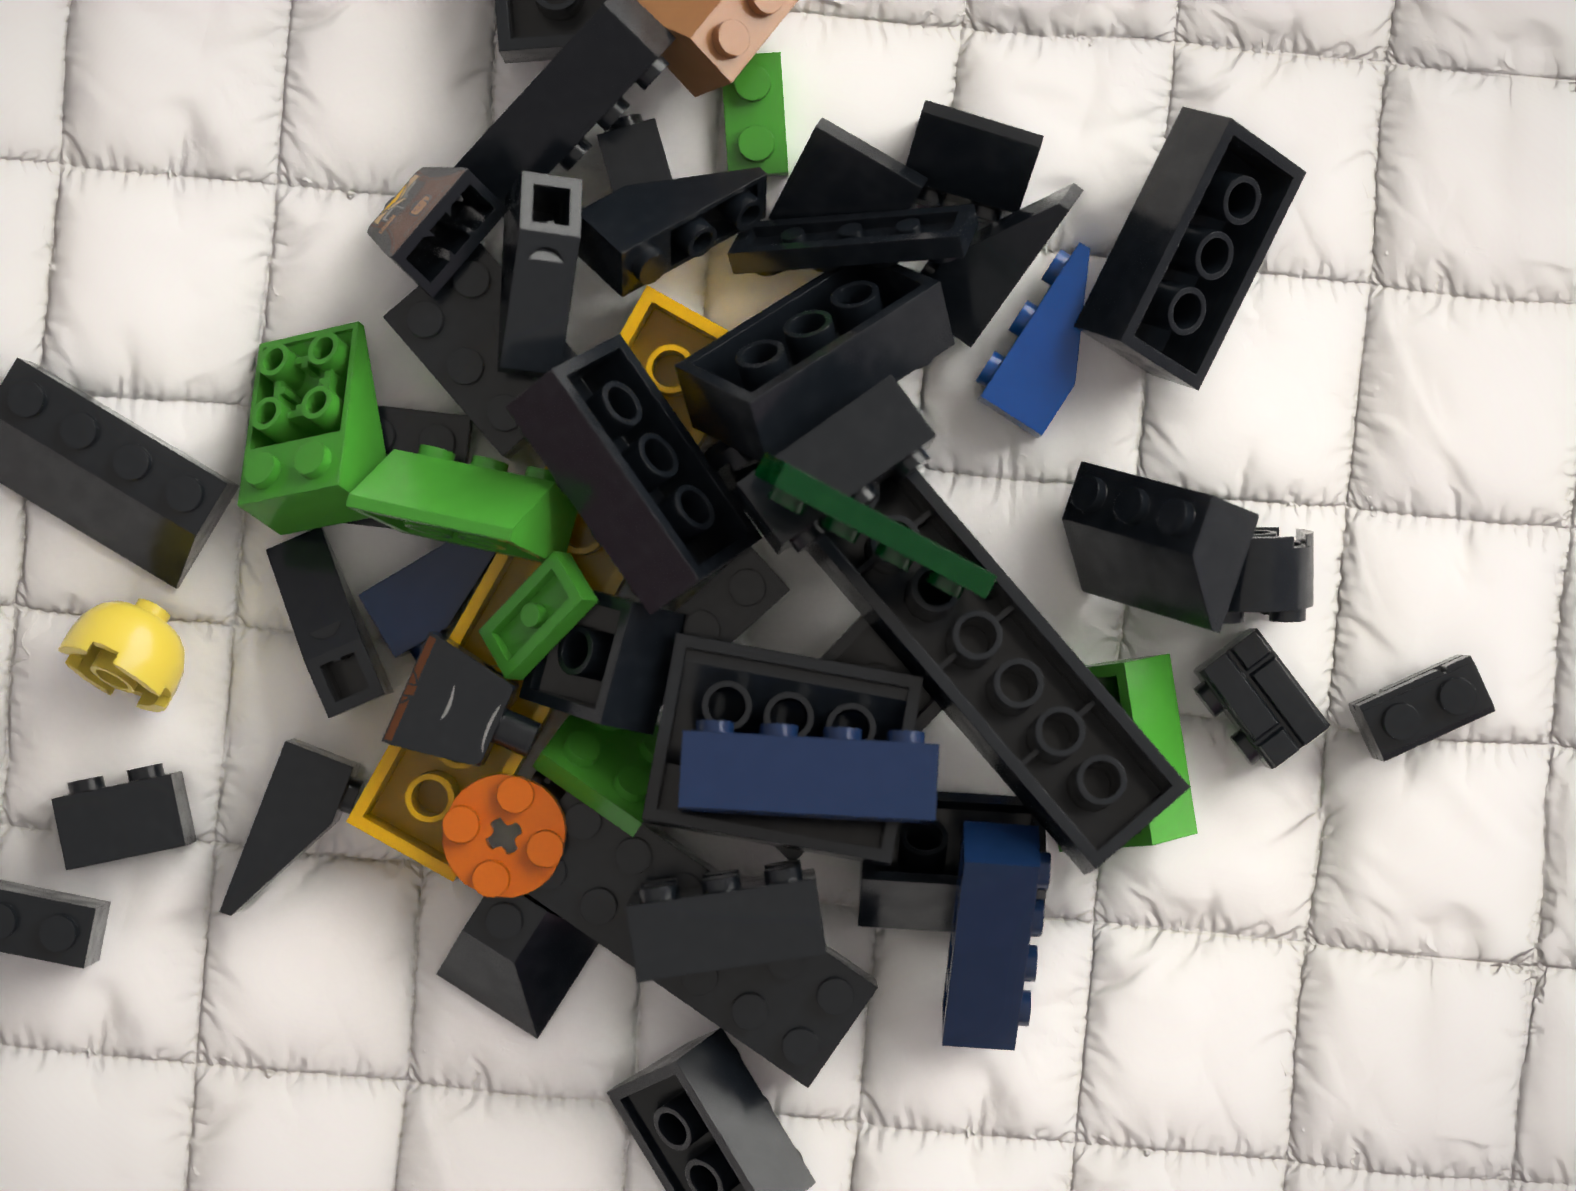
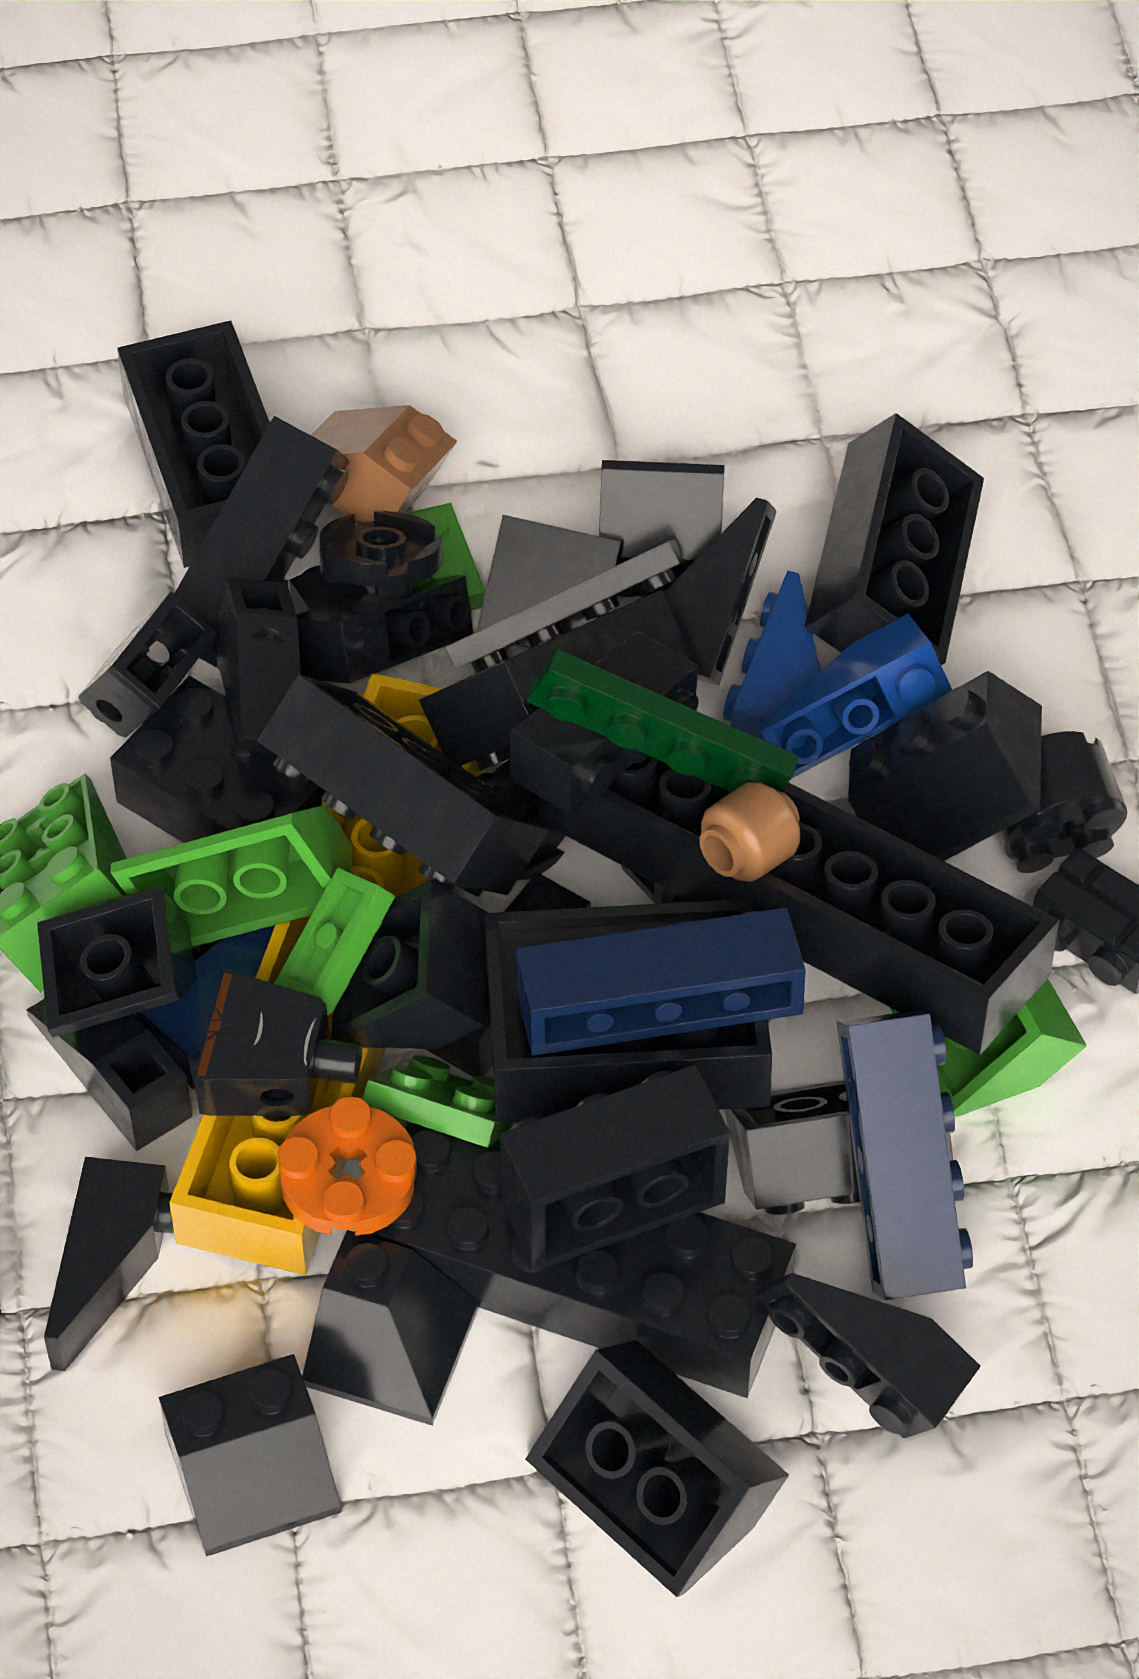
camera: 20 degrees left, 35 degrees down
(339, 585) = (114, 960): none -> black slope
(375, 1045) = (249, 1454): none -> slope
(680, 173) = (380, 554): none -> black plate
(922, 1095) = (884, 1353): none -> black slope
(933, 637) = (750, 832): none -> medium nougat head
(1109, 421) = (858, 694): none -> blue slope

